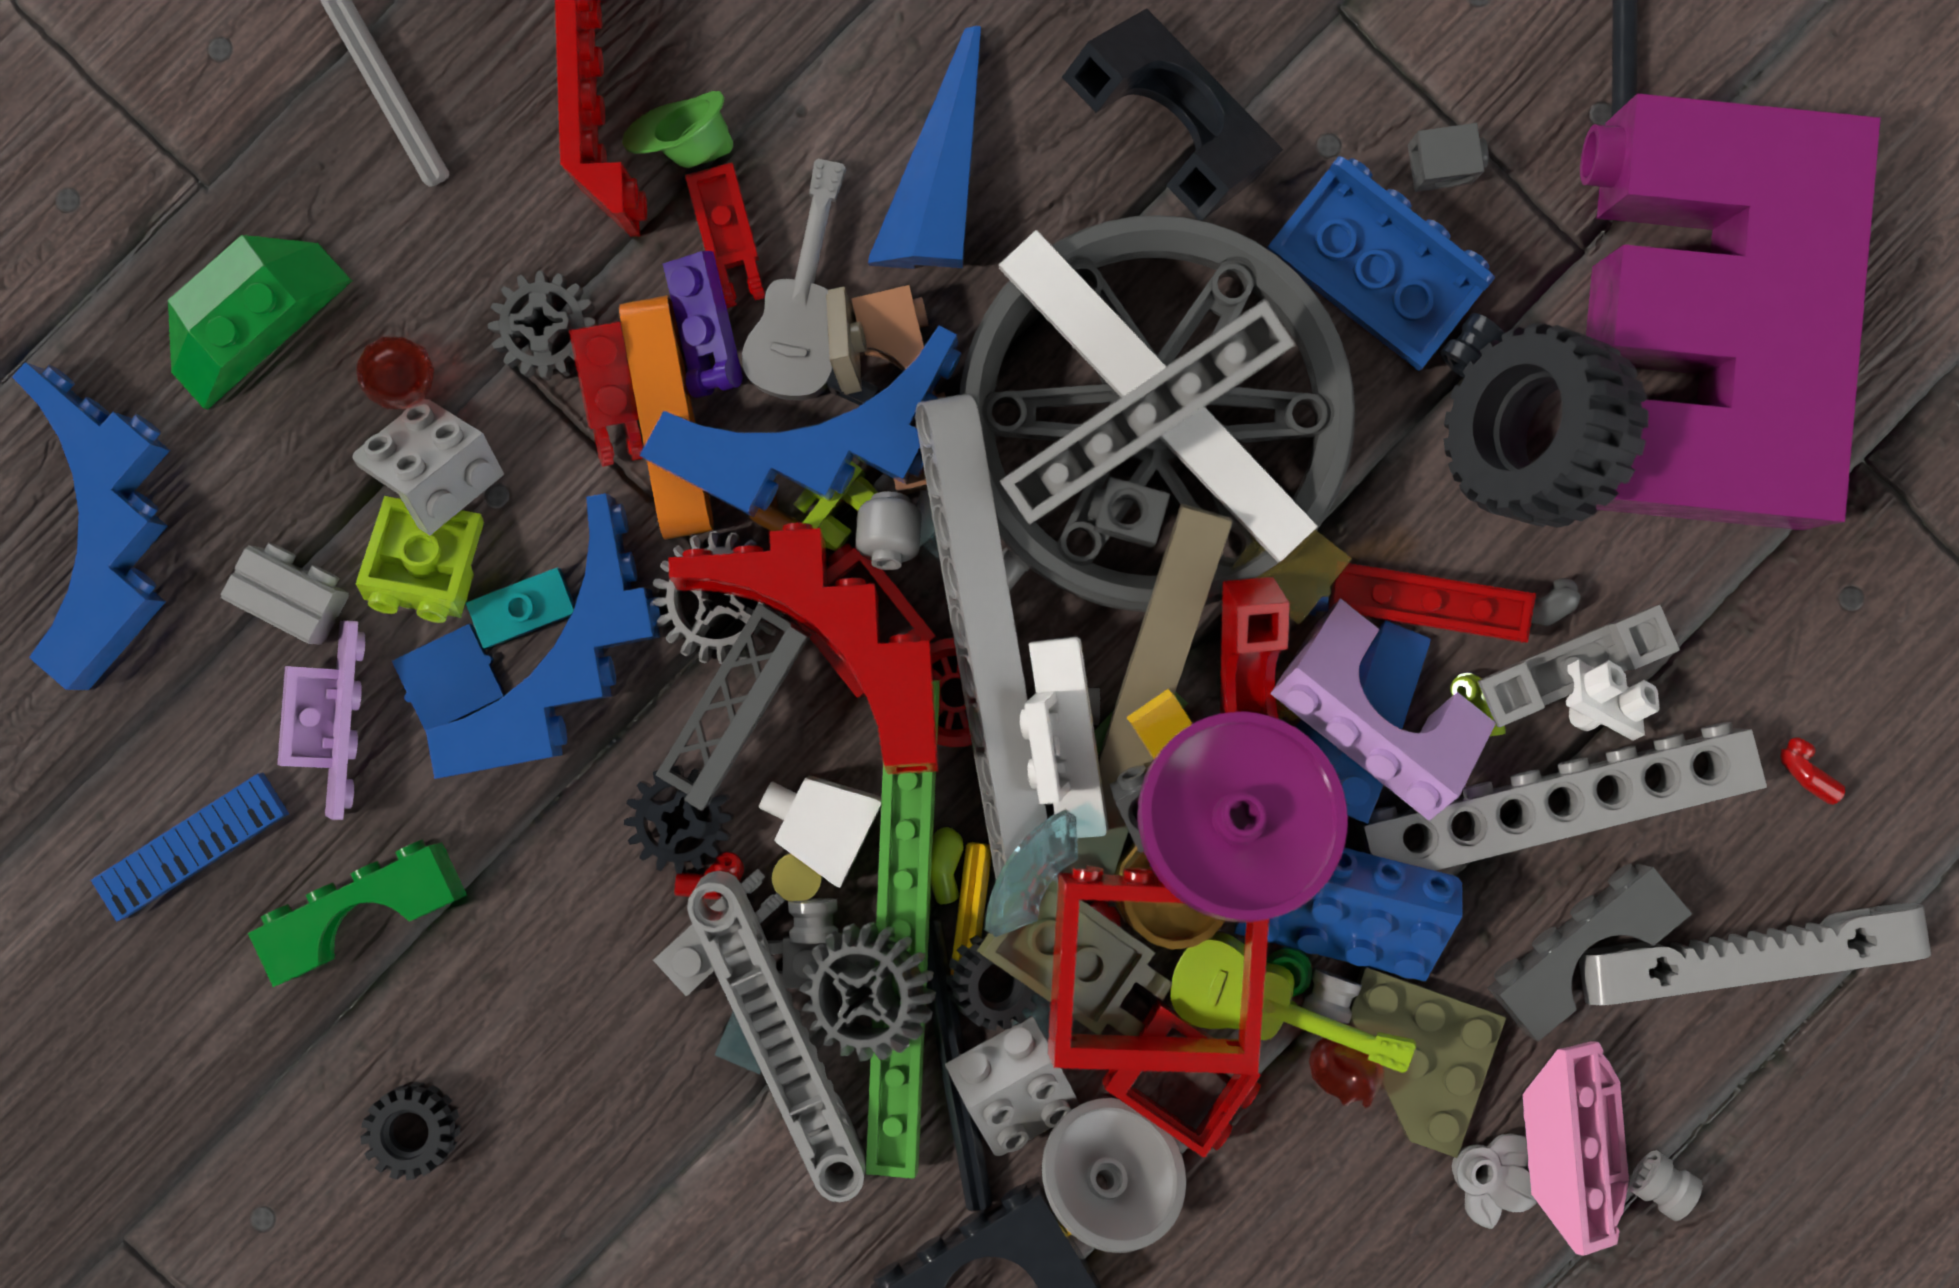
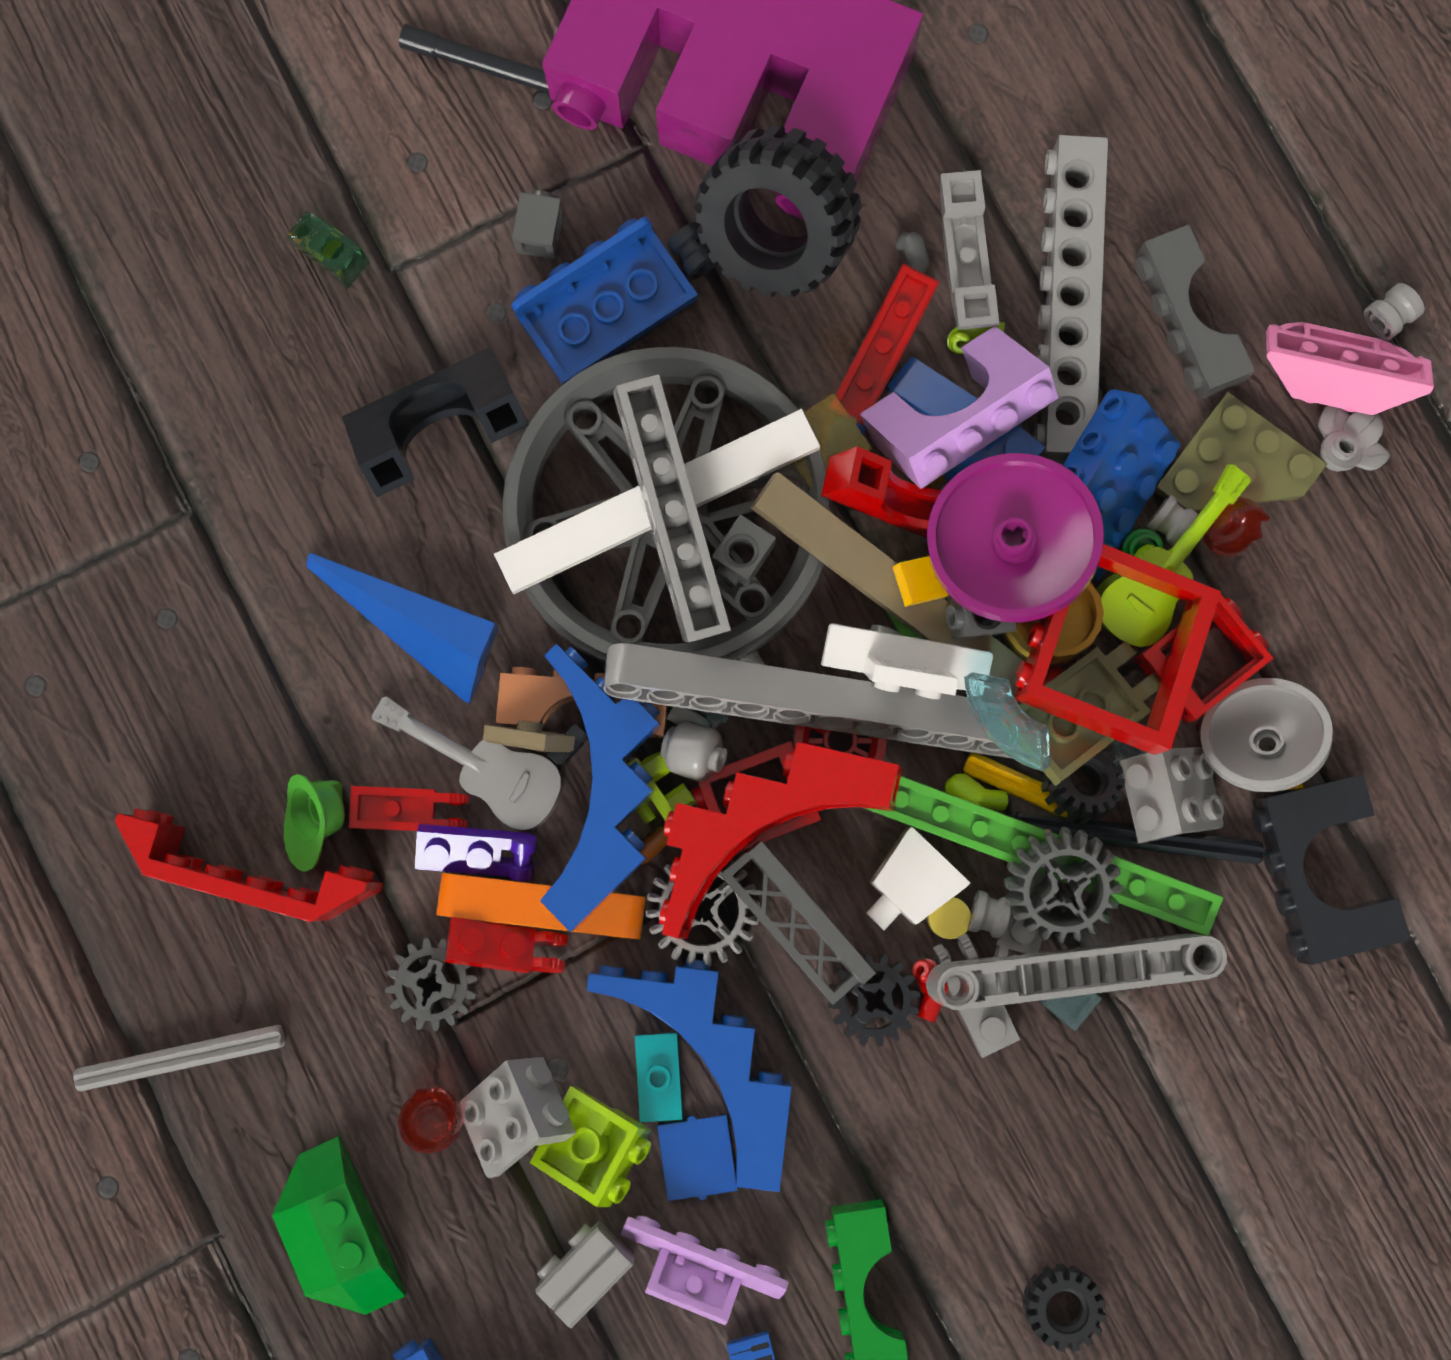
camera: 75 degrees left, 5 degrees down
(1605, 699) = (1003, 234): white hips -> none
(1810, 777) = (1092, 111): red arm -> none
(1881, 938) = (1243, 125): light grey gear -> none

